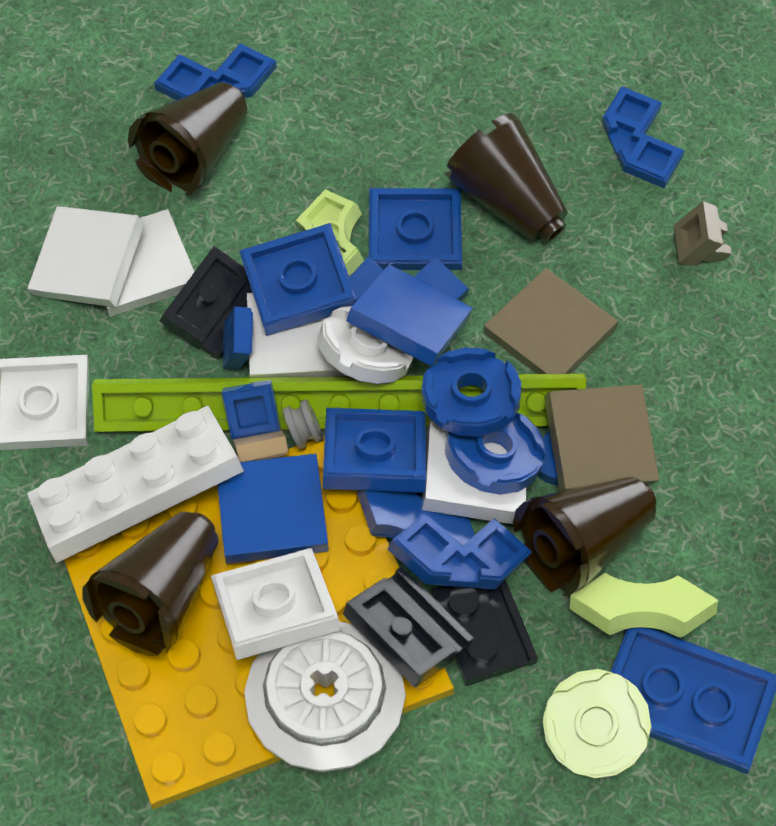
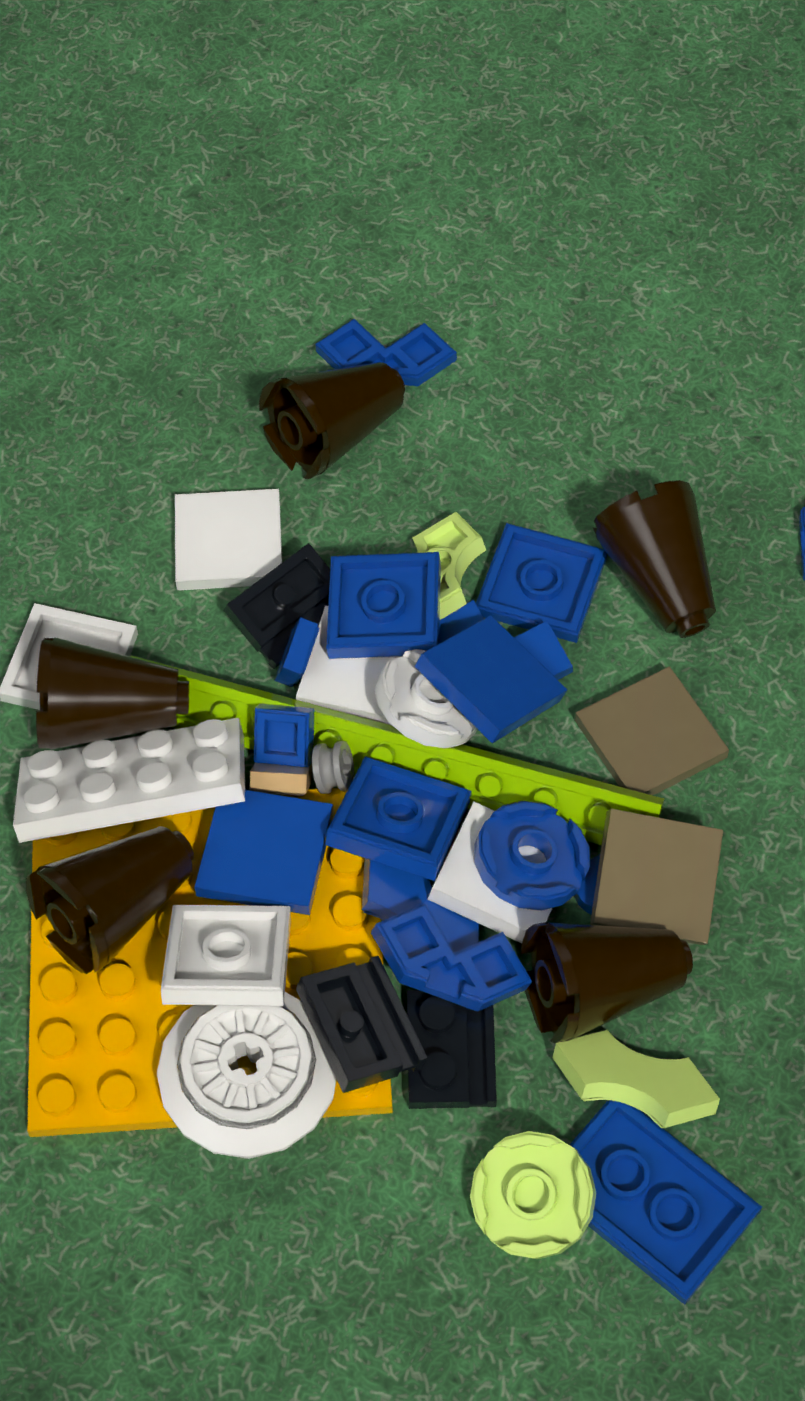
camera: 20 degrees right, 0 degrees up
(86, 256) = (172, 518): white tile -> none
(87, 417) = (102, 695): none -> dark brown cone
(468, 414) = (521, 811): blue tile -> none

